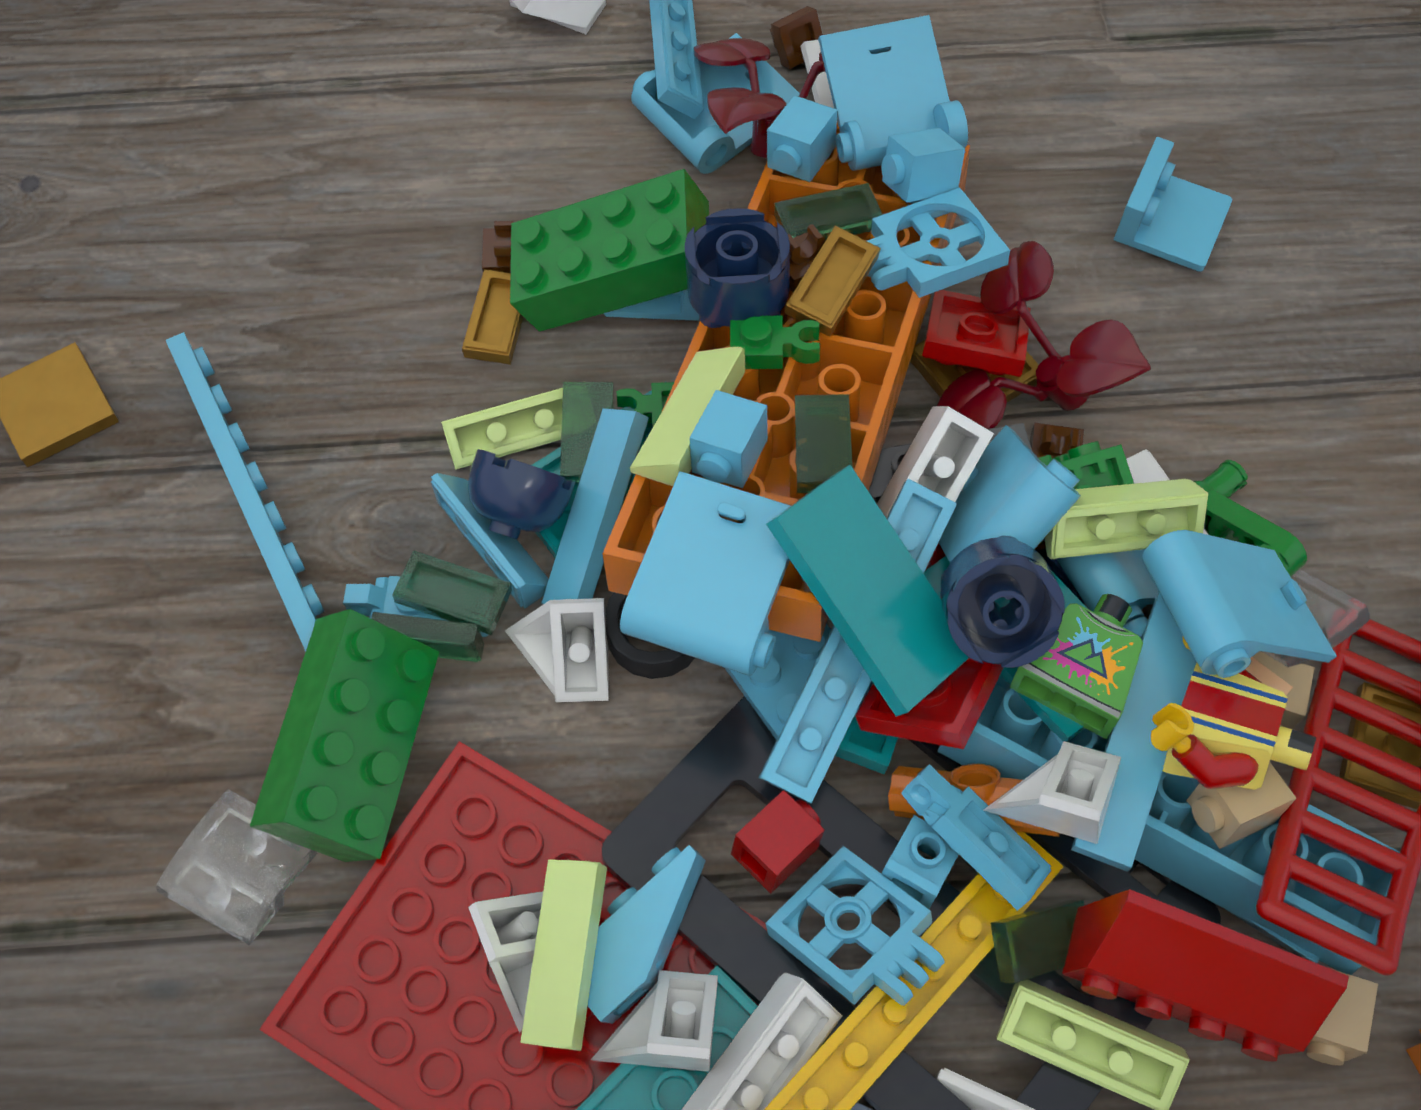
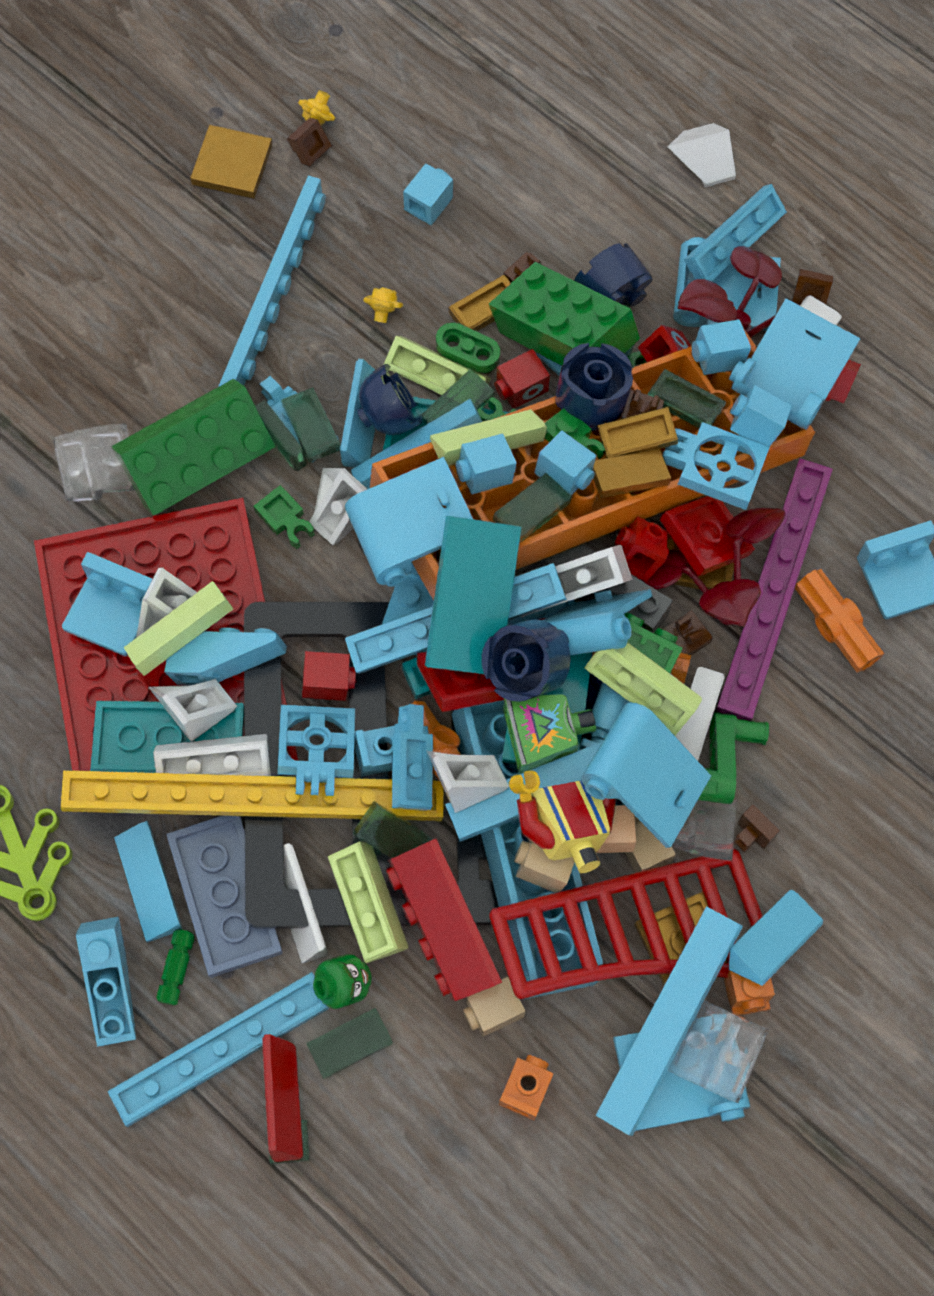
camera: 45 degrees right, 5 degrees up
(97, 272) = (317, 108): none -> yellow plant
(123, 311) = (309, 141): none -> reddish brown tile
(317, 256) = (428, 194): none -> medium azure brick
(388, 402) = (383, 302): none -> yellow plant
(443, 1012) = (107, 604): none -> medium azure bracket
(517, 718) = (283, 513): none -> green plate
(527, 369) = (470, 346): none -> green plate
(610, 162) = (617, 275): none -> dark blue brick
(620, 349) = (522, 379): none -> red brick
(730, 191) = (662, 343): none -> red brick
(805, 365) = (566, 463): none -> medium azure brick
(867, 325) = (630, 473): none -> pearl gold tile
(938, 385) = (643, 547): none -> red brick
(1067, 310) = (777, 586): none -> magenta plate
(1172, 307) = (839, 620): none -> orange piece
(1341, 566) = (755, 828): none -> reddish brown tile

